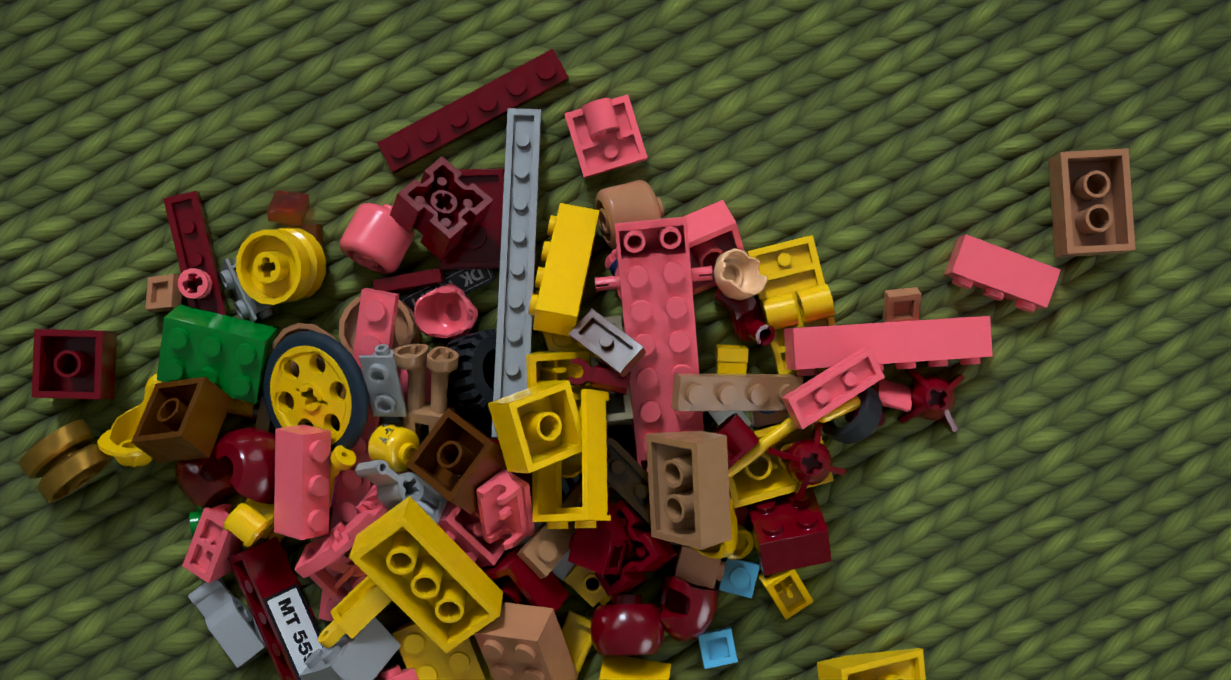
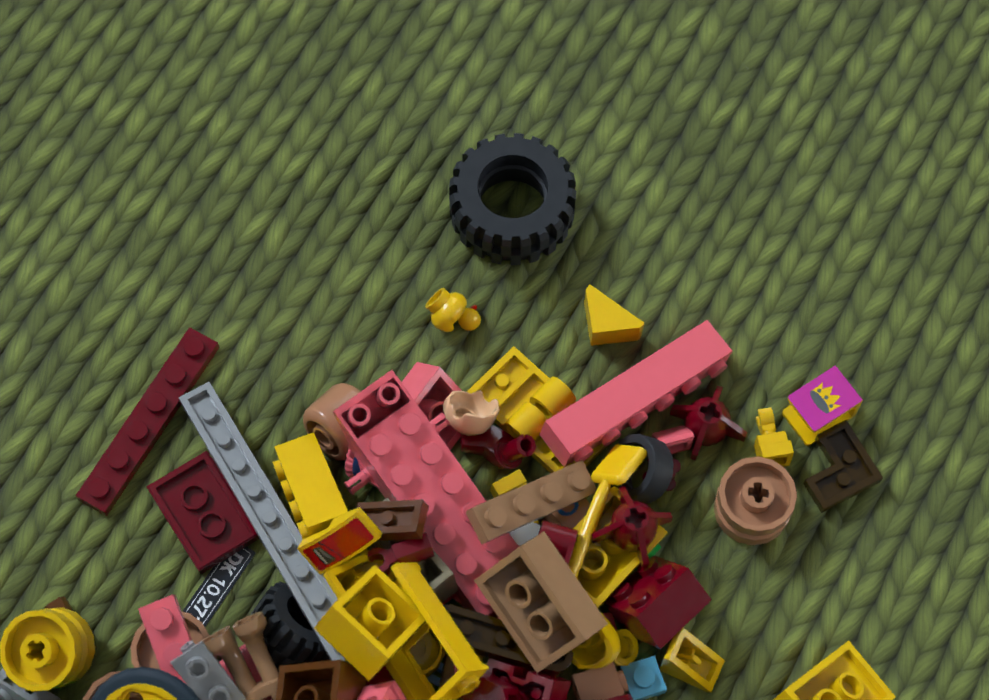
camera: 25 degrees left, 20 degrees down
(288, 207) = (24, 598): clear red plate -> none
(375, 239) = (124, 574): coral head -> none
(411, 281) = (188, 586): dark red tile -> none
(440, 207) = (168, 507): dark red brick -> none
(445, 312) = (226, 600): coral hair -> none
(557, 338) = (340, 541): none -> slope
(605, 136) = (280, 371): coral plate -> none
(781, 168) = (450, 307): none -> yellow animal
(833, 387) = (611, 448): coral hinge -> none
(901, 305) = (626, 355): nougat plate -> none
(906, 260) = (608, 320): none -> yellow slope
(921, 65) = (512, 161): none -> black tyre
(944, 497) = (749, 482): none -> nougat wheel
(970, 455) = (770, 443): none -> yellow piece
(1001, 273) = (694, 284): coral brick -> none
(1022, 513) = (849, 472): none -> dark brown plate
(1035, 448) = (821, 405): none -> piece
(1091, 203) = (728, 185): nougat brick -> none

